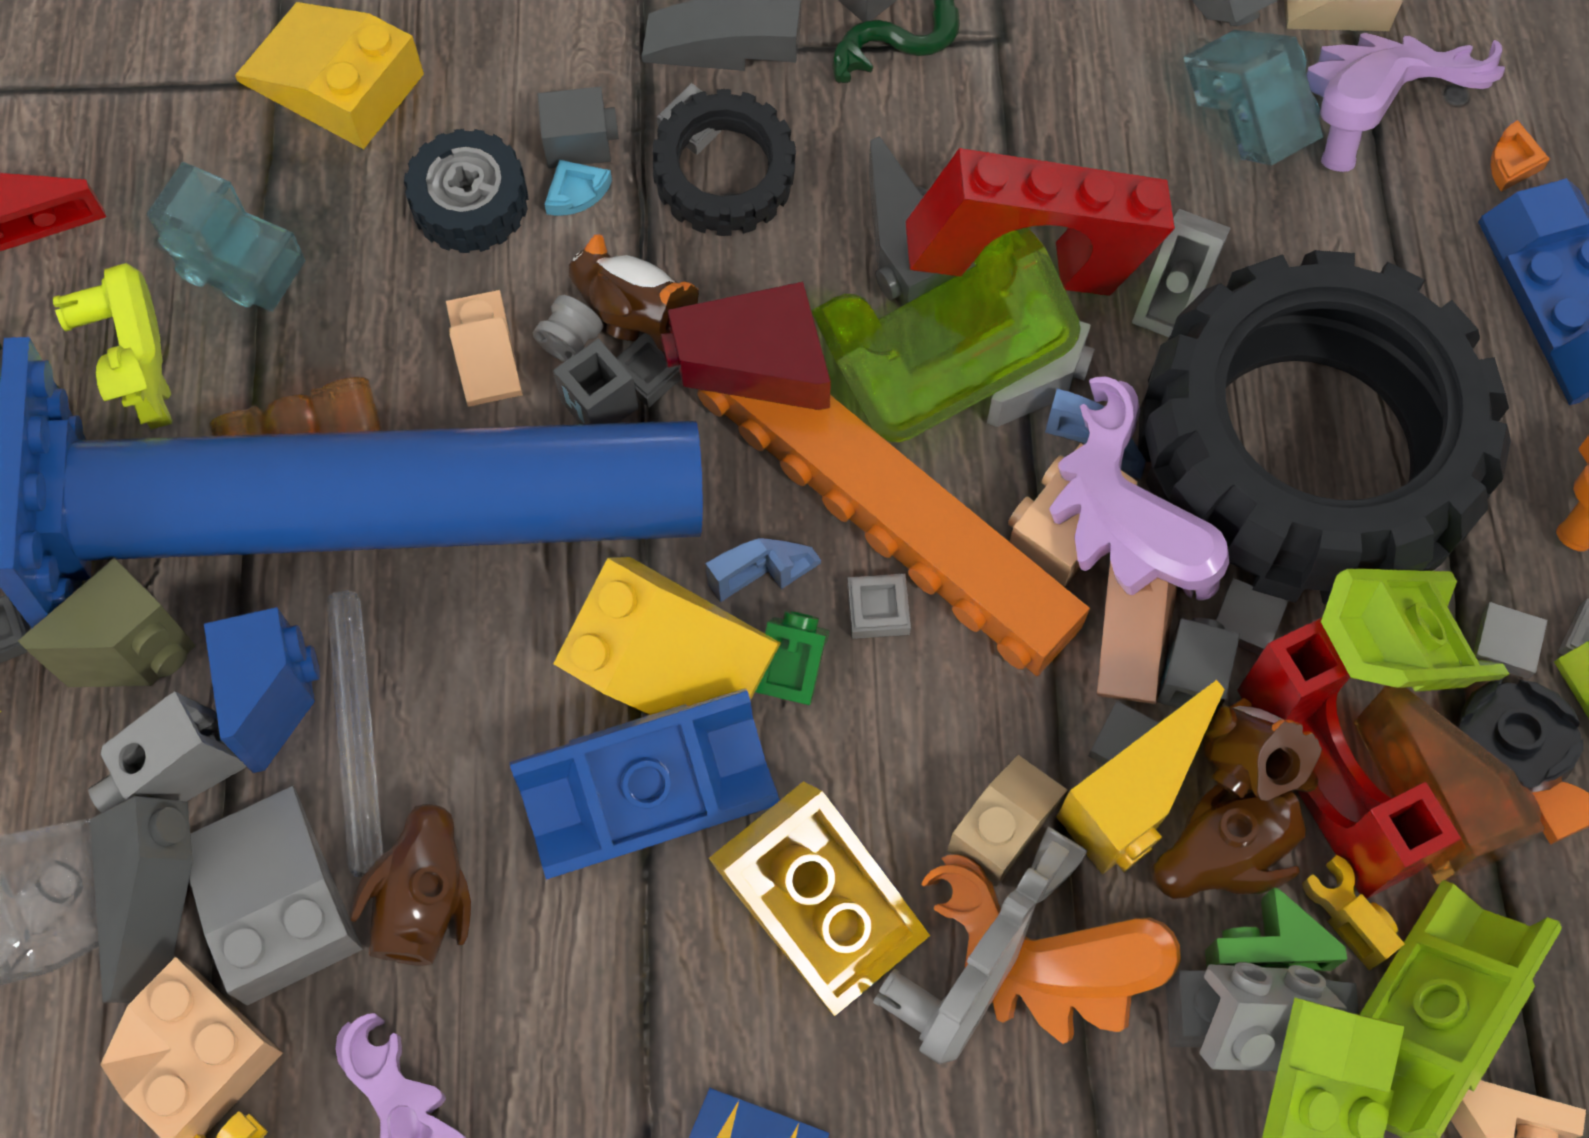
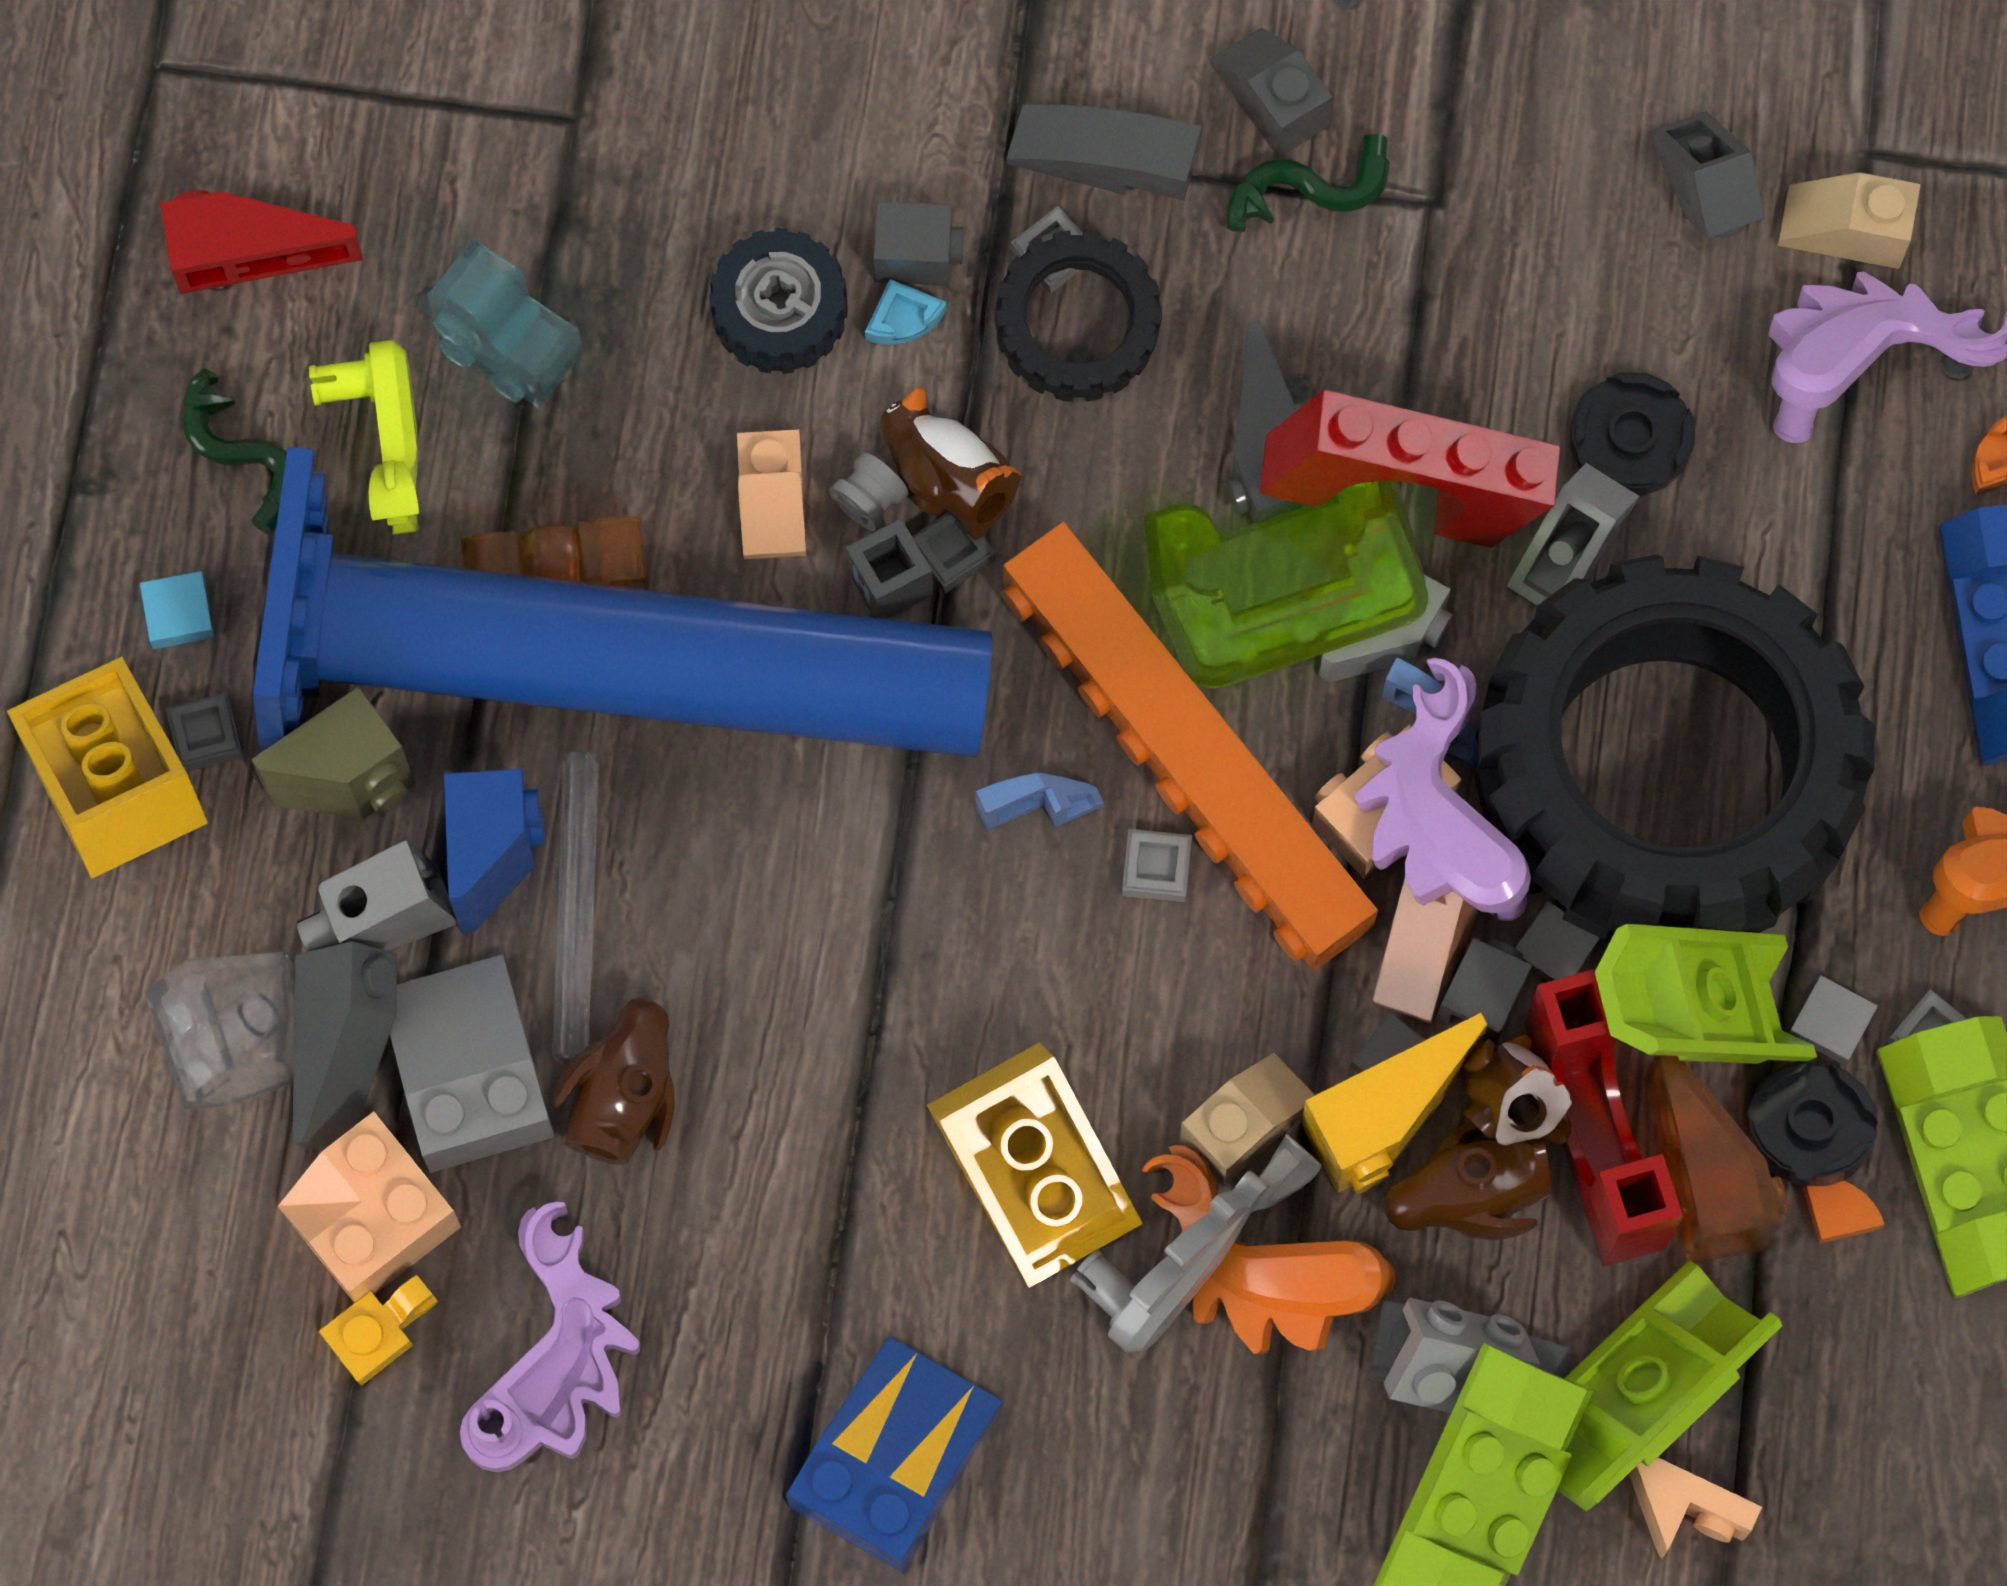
camera: 10 degrees right, 5 degrees up
(335, 69) = (643, 118): yellow slope -> none
(644, 782) = (874, 1015): blue piece -> none
(660, 642) = (919, 879): yellow slope -> none
(751, 347) = (1066, 558): dark red slope -> none
(798, 659) = (1051, 906): green bracket -> none
(1212, 180) = (1633, 431): none -> black tile
(1262, 88) = (1711, 334): clear light blue brick -> none
(1289, 940) = (1514, 1294): bright green slope -> none
(1361, 924) = (1592, 1291): yellow plate -> none

